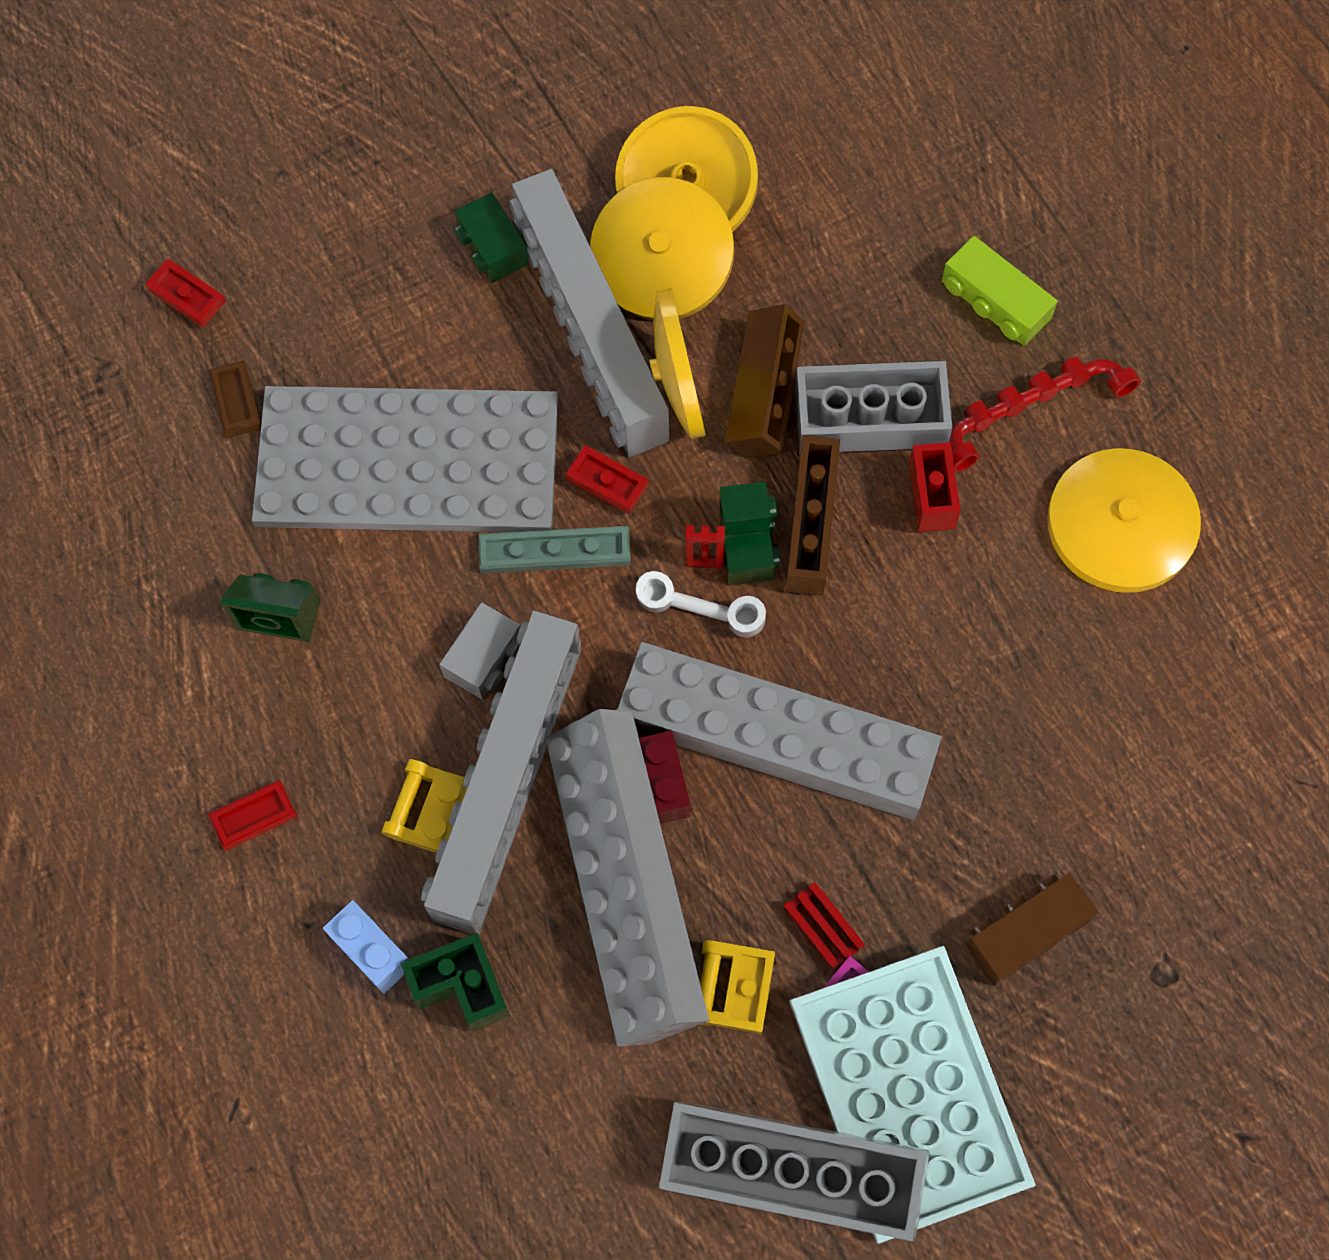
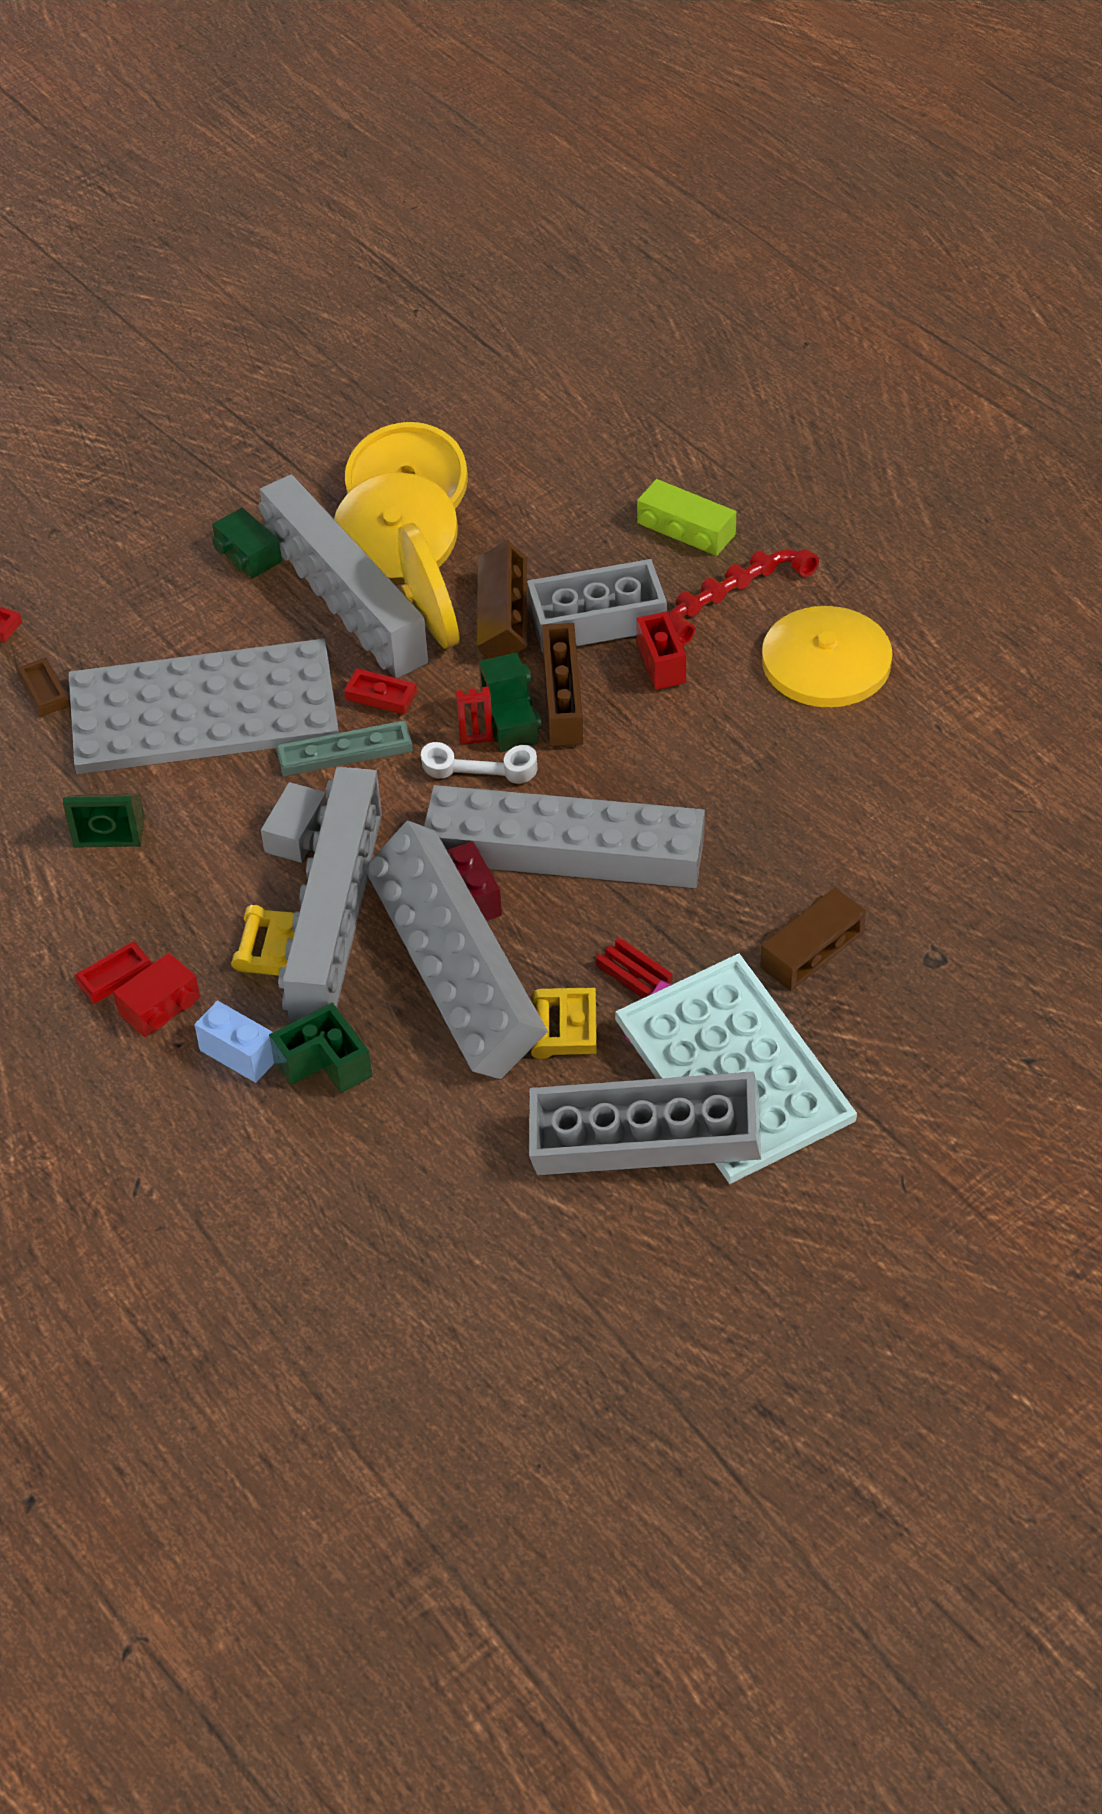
camera: 10 degrees left, 20 degrees down
(292, 864) = (157, 995): none -> red brick

